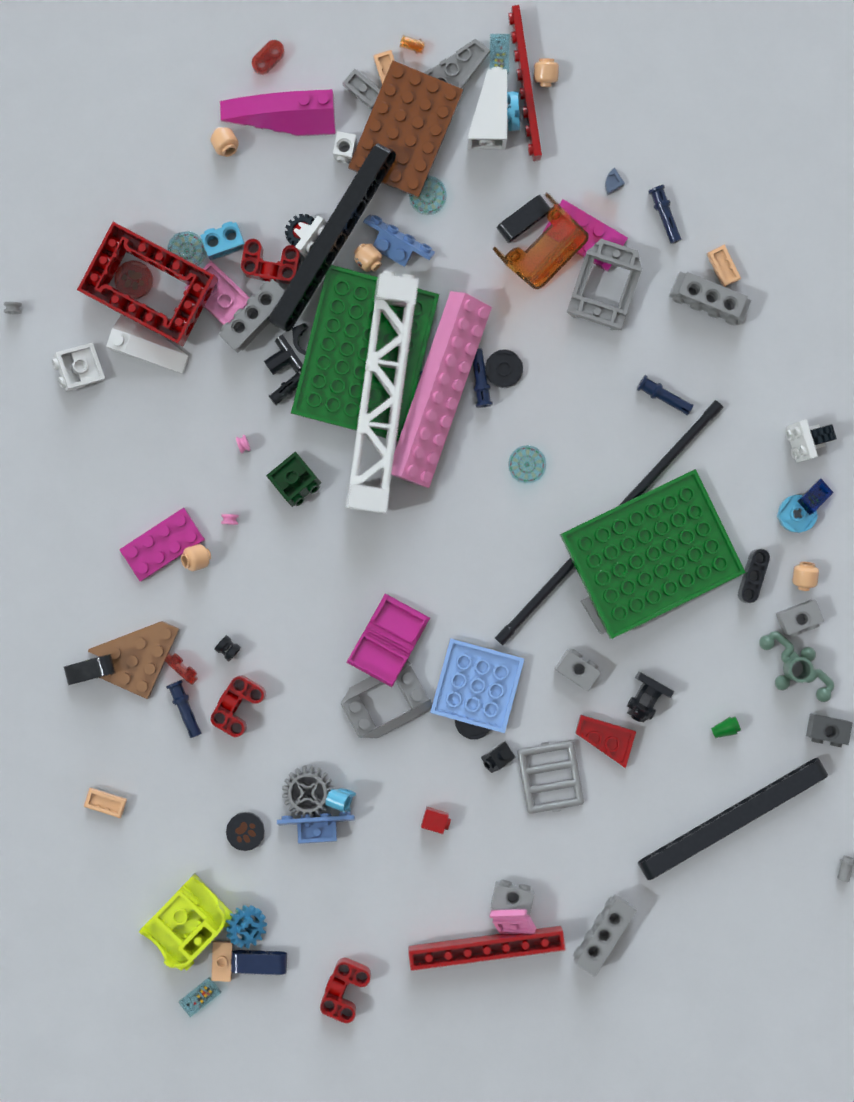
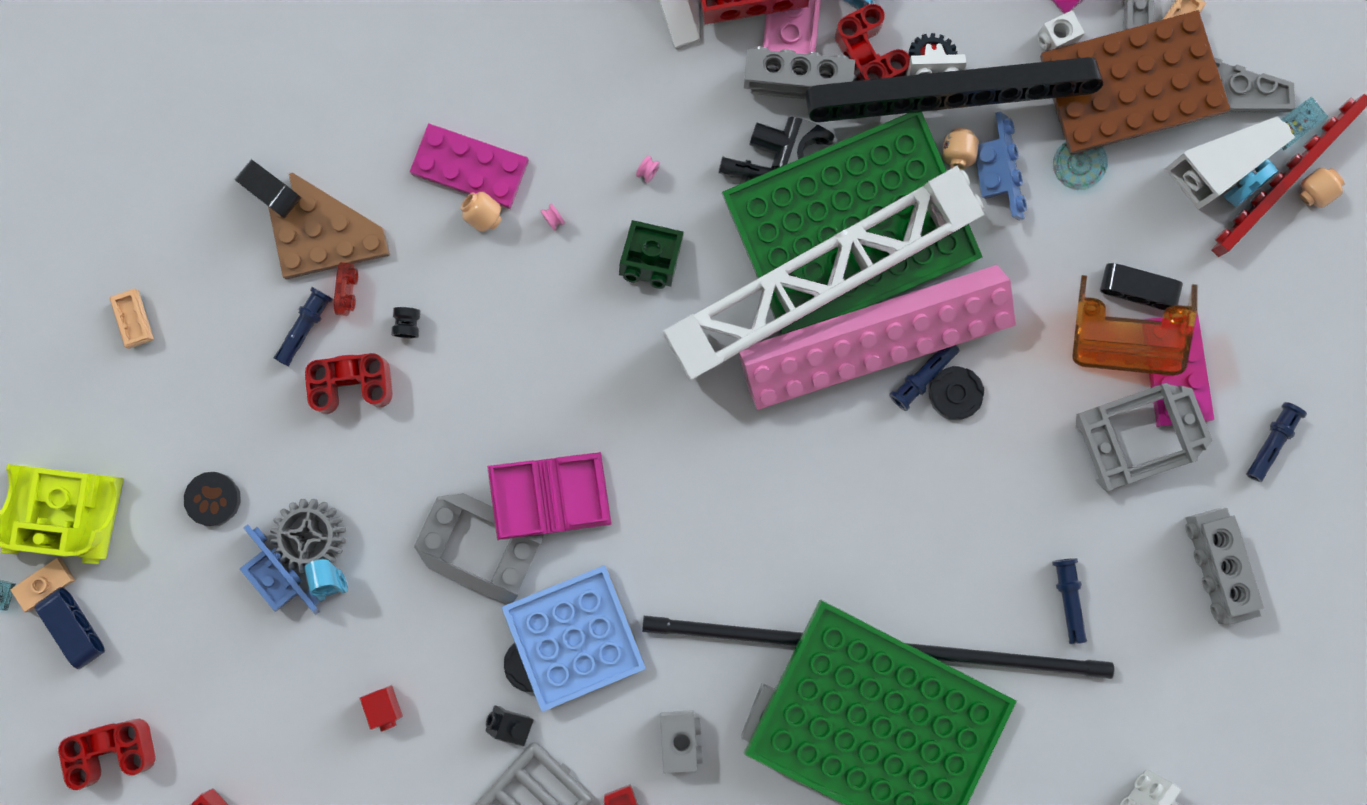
camera: 55 degrees right, 5 degrees down
(245, 926) = (99, 581): dark azure gear -> none
(412, 44) = (1230, 22): clear orange pin -> none
(527, 464) = (869, 501): clear light blue tile -> none
(613, 181) = (1262, 355): sand blue tile -> none
(723, 266) = (1271, 553): light nougat plate -> none

